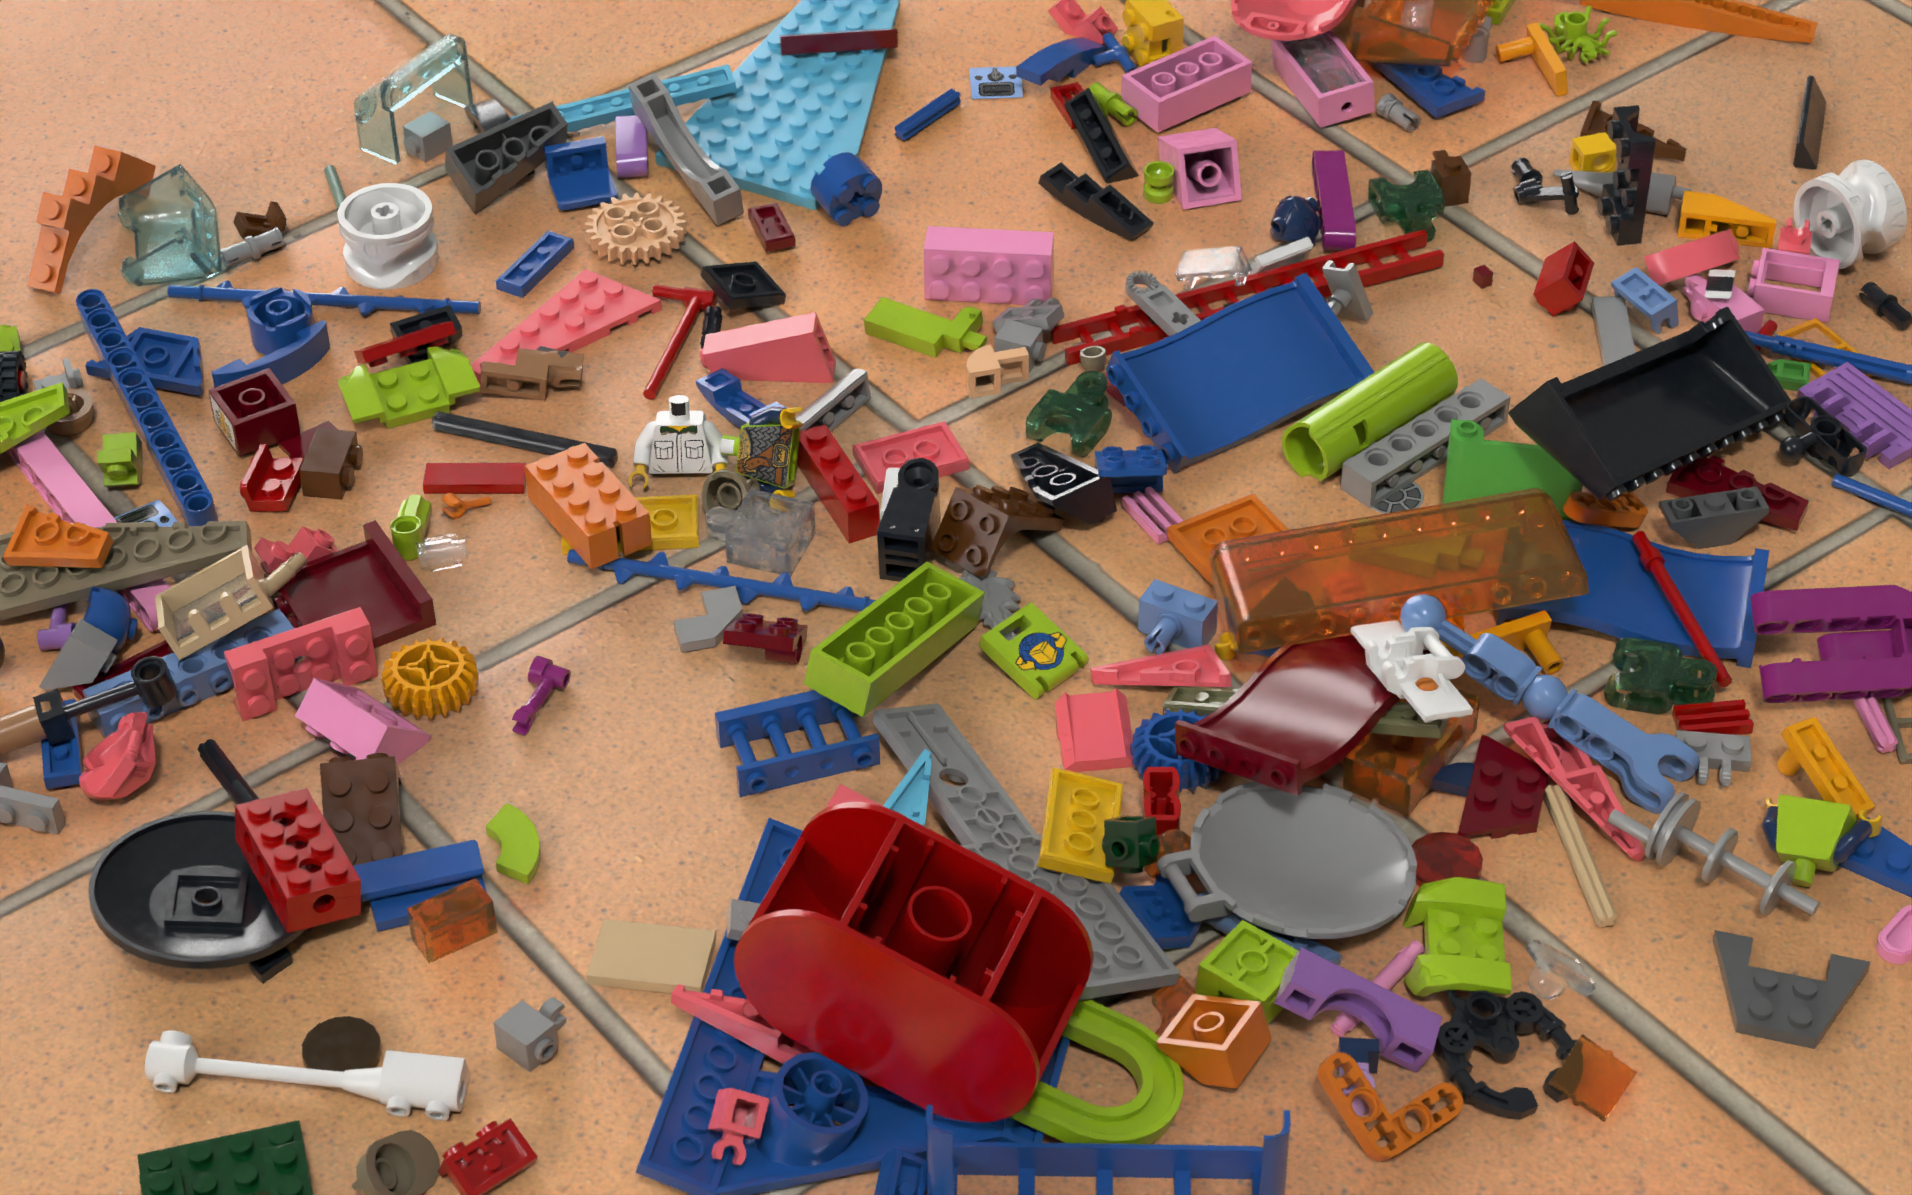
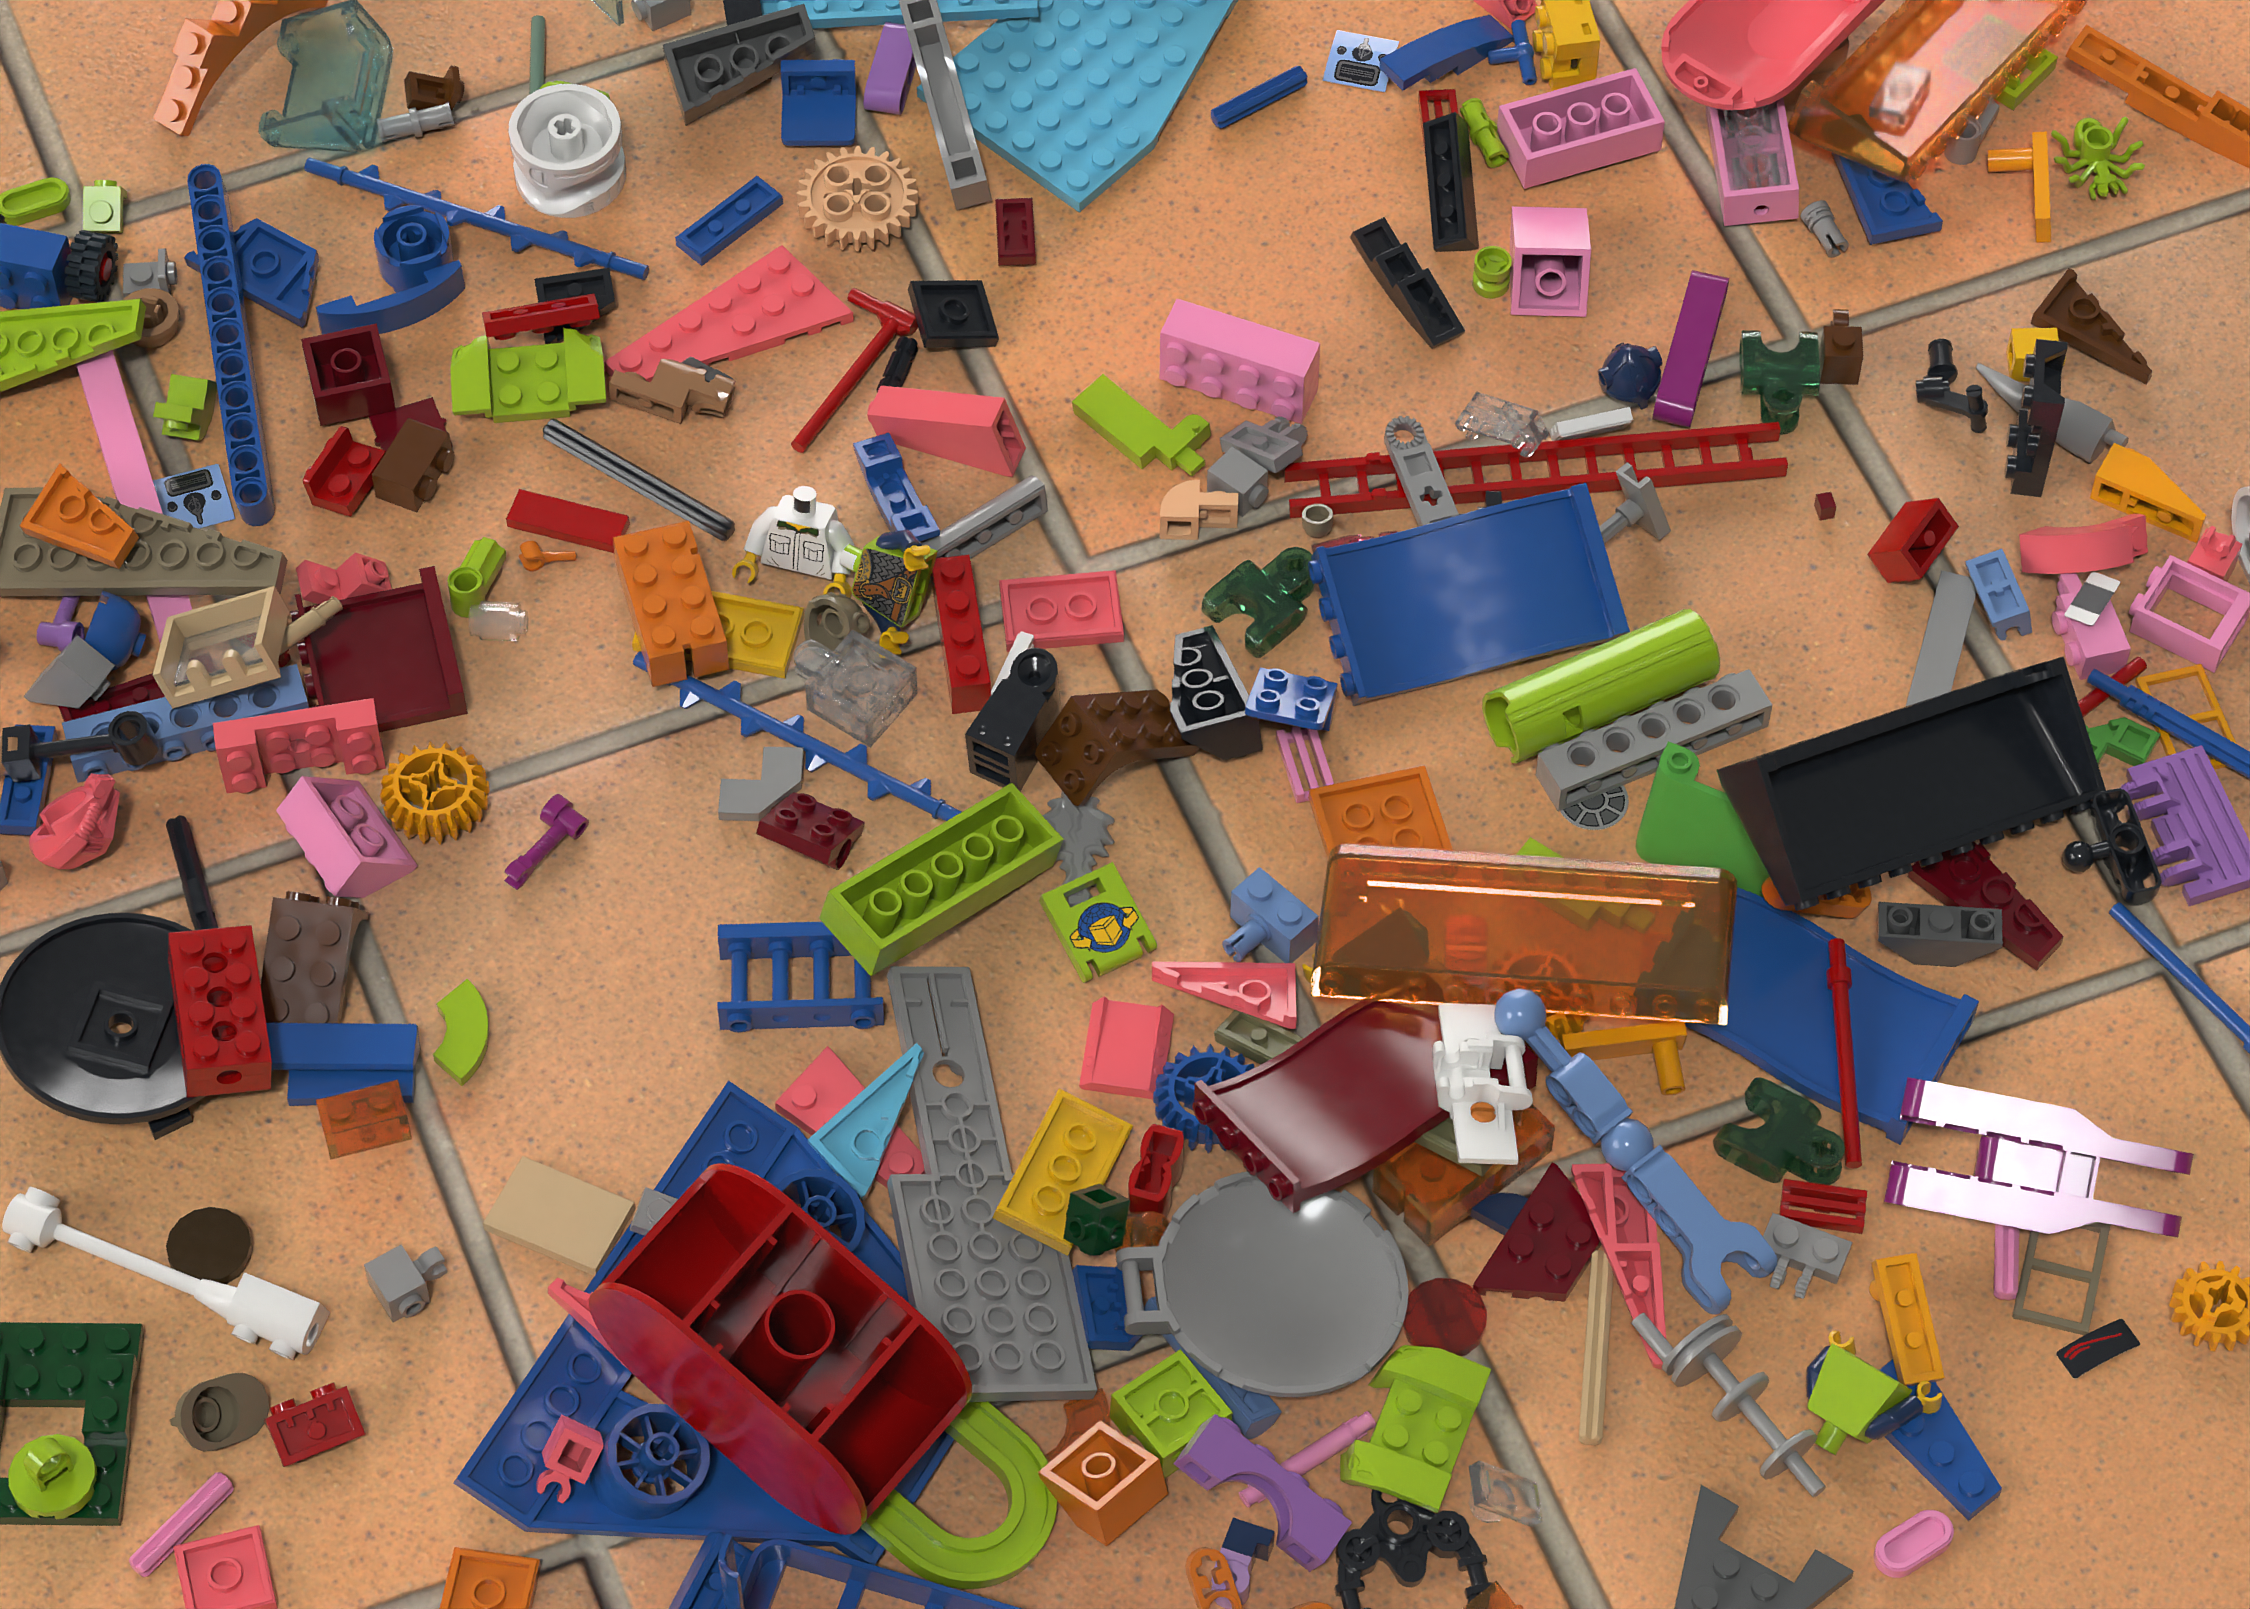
camera: 15 degrees right, 15 degrees up
(847, 188) = (1116, 202): blue brick -> none

